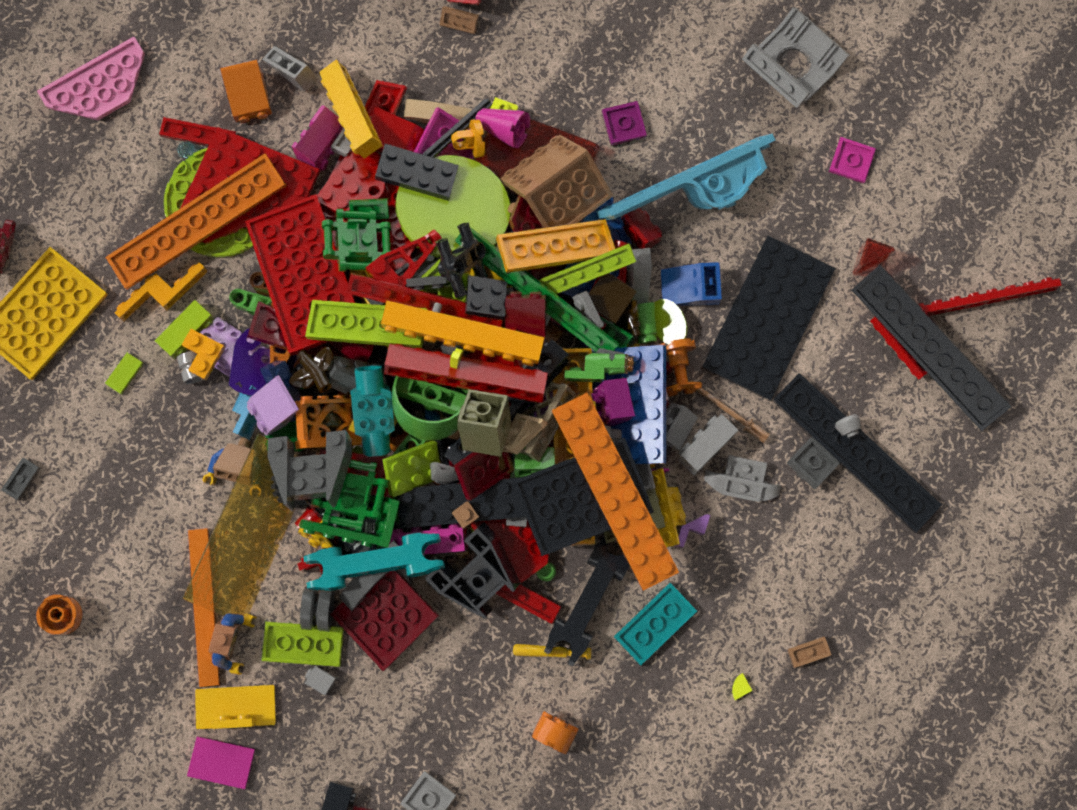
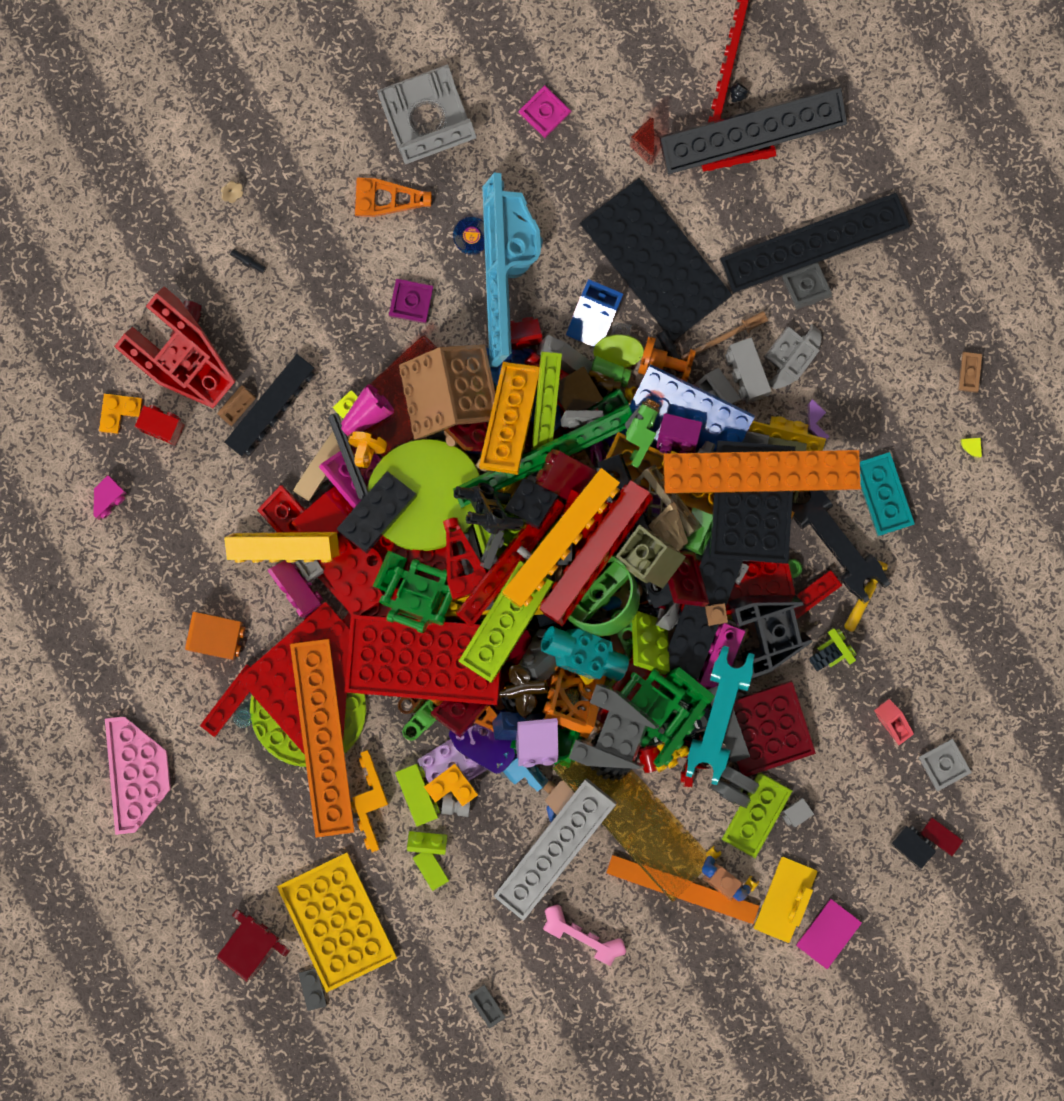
camera: 65 degrees left, 5 degrees up
(51, 607) = (622, 1029): orange brick -> none
(120, 508) = (605, 952): none -> bright pink plate
(145, 358) = (427, 842): none -> lime plate
(186, 471) = (555, 849): none -> light grey plate
(290, 68) = (207, 585): light grey slope -> none
(446, 732) = (894, 721): none -> coral slope
(456, 357) = (581, 554): neon yellow tile -> none
(472, 48) = (270, 406): none -> black brick
(486, 643) = (832, 651): none -> plate
(554, 732) = (939, 627): orange brick -> none
(569, 343) = (597, 450): none -> magenta piece
(690, 315) = (621, 328): none -> clear plate
(695, 365) = (668, 344): none -> black pin
(697, 44) = (365, 198): none -> orange plate
(707, 145) = (469, 235): none -> clear blue tile
(849, 426) = (790, 238): light grey cone -> none
(959, 320) = (738, 92): none -> black plate

